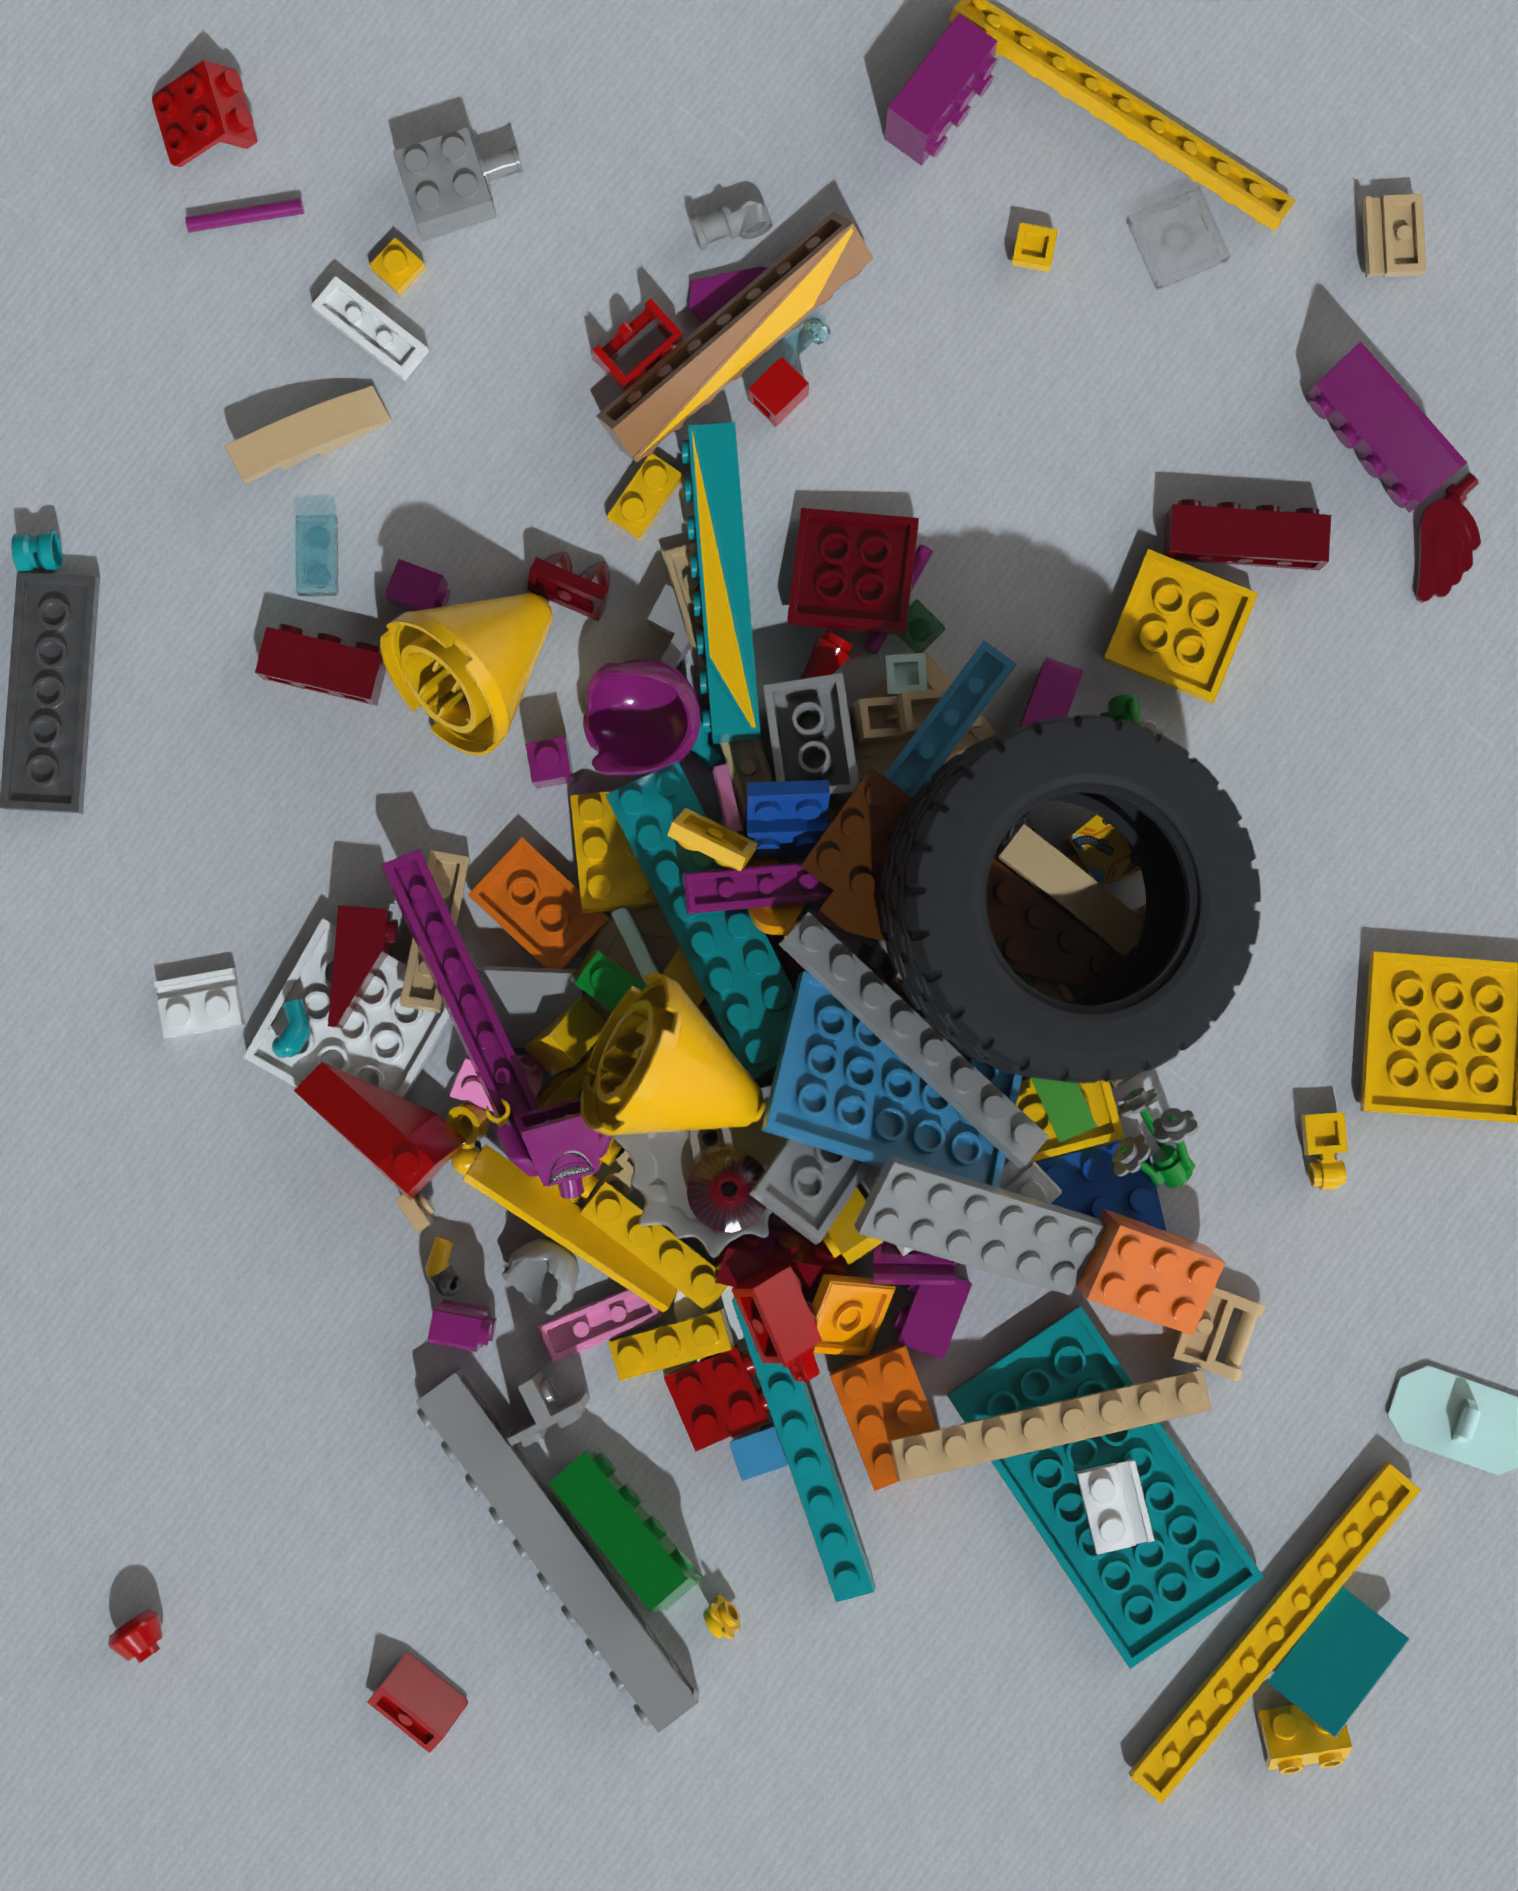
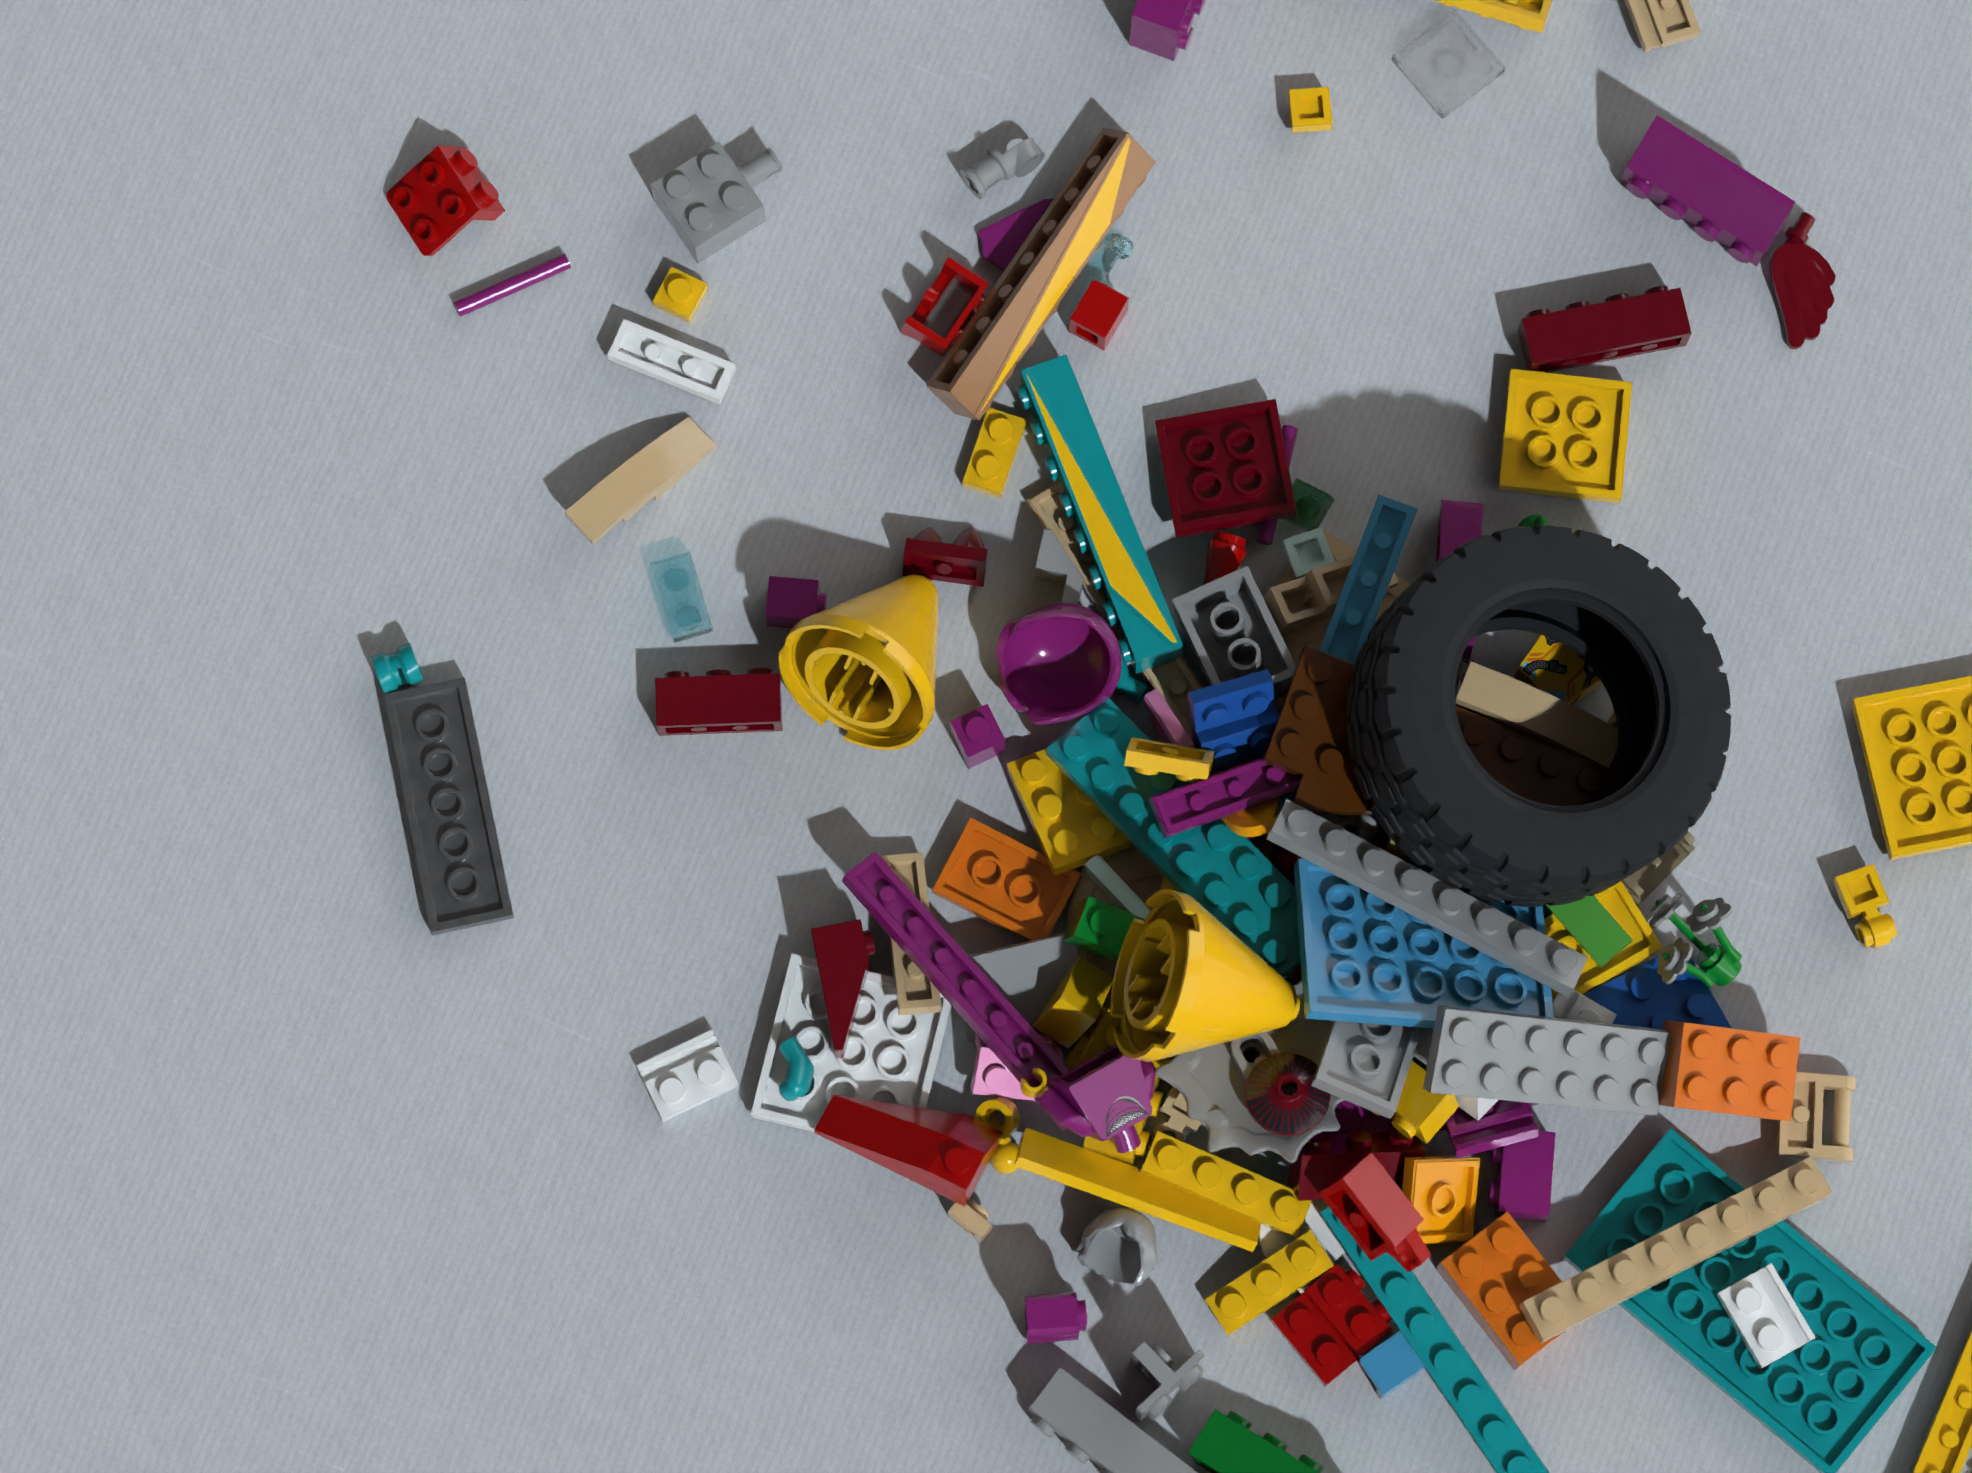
camera: 20 degrees left, 10 degrees down
(439, 1269) = (1010, 1275): arm -> none
(595, 1323) = (1187, 1284): bright pink tile -> none

